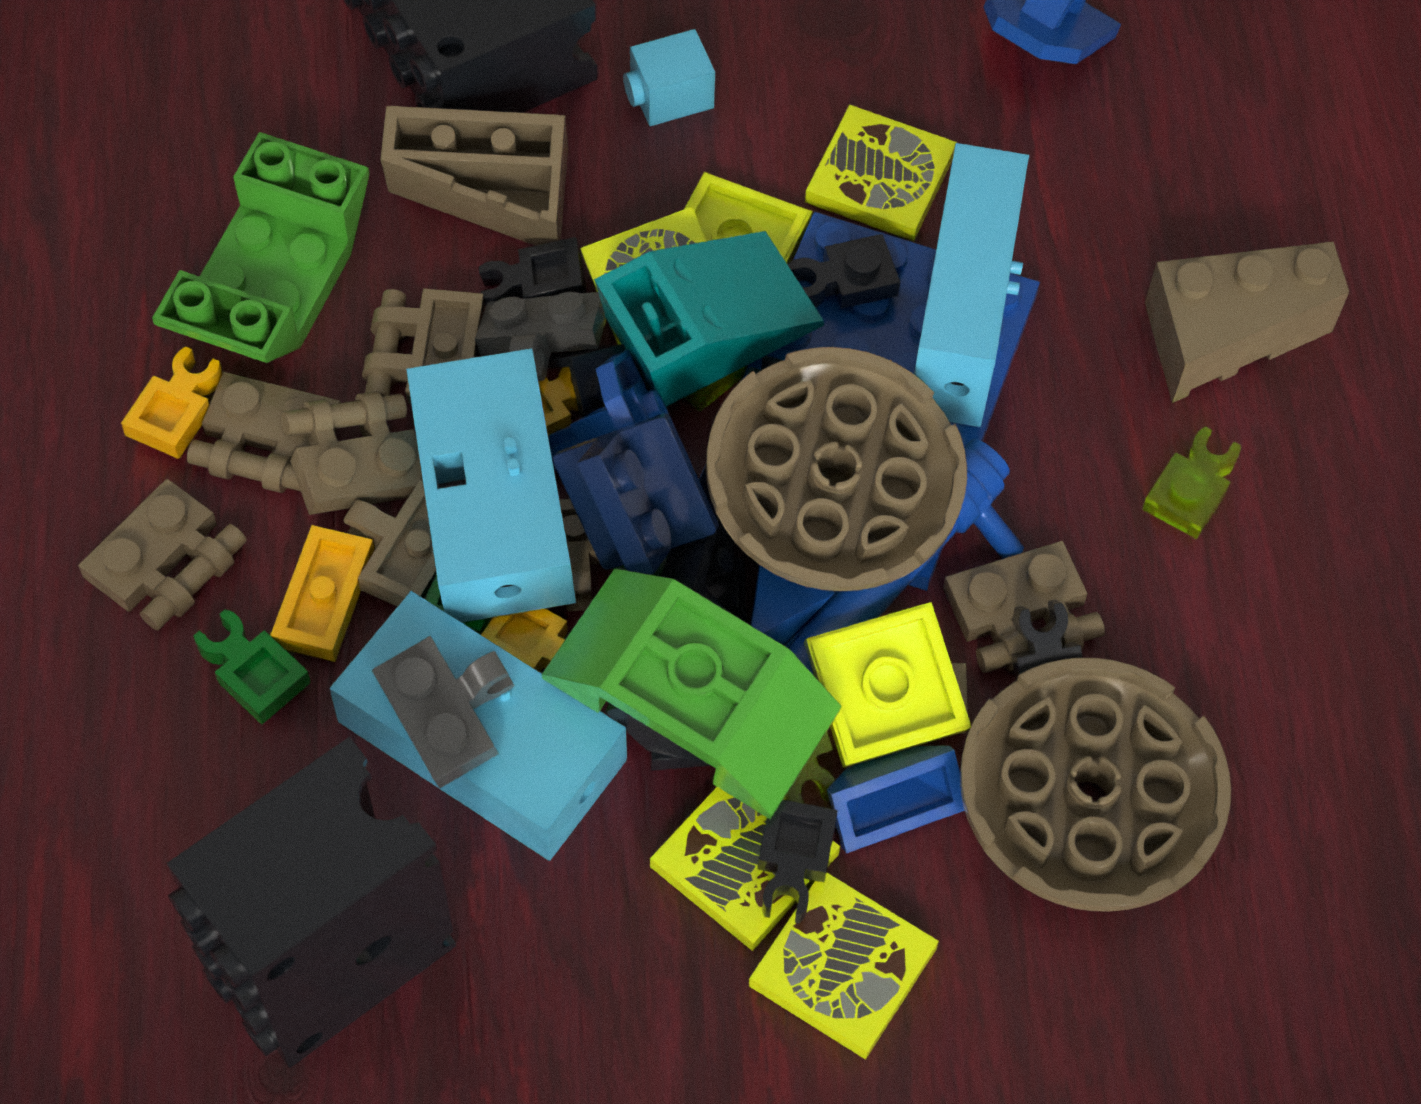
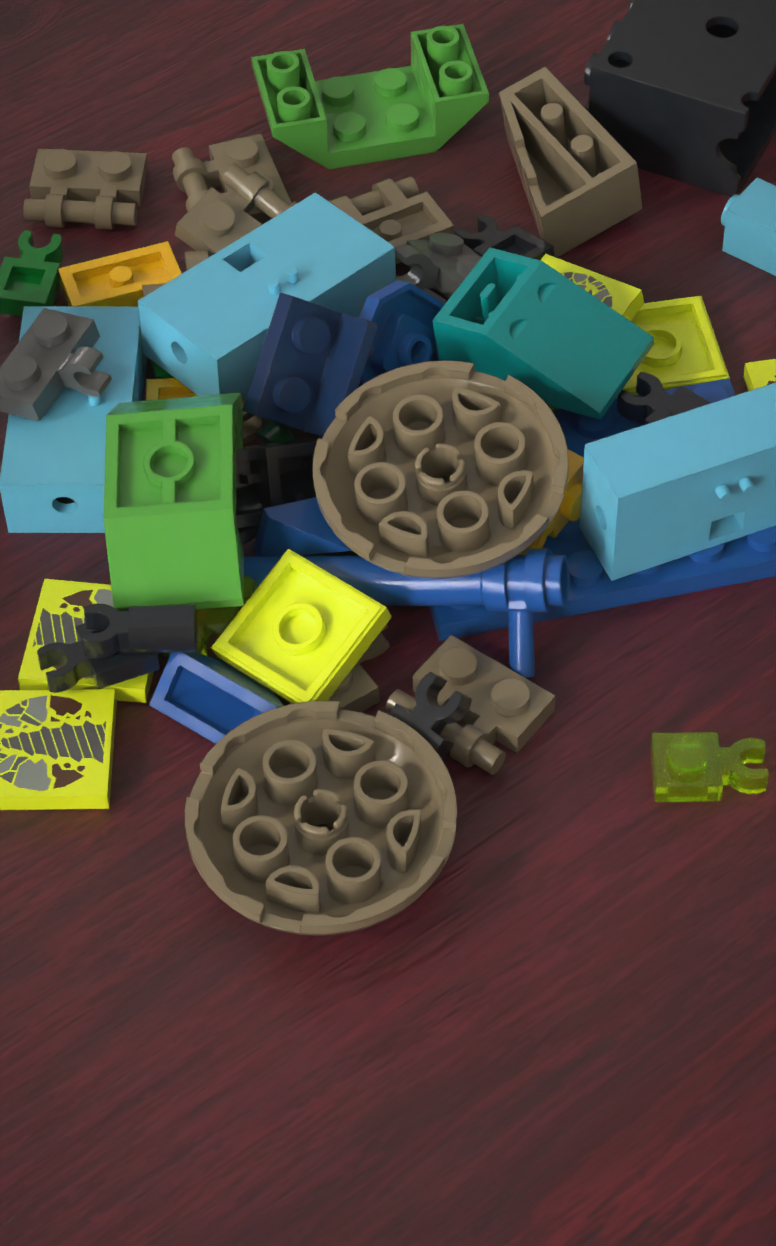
camera: 60 degrees right, 10 degrees down
(173, 411) = (206, 122): yellow plate -> none
(819, 802) = (140, 629): none -> black bar

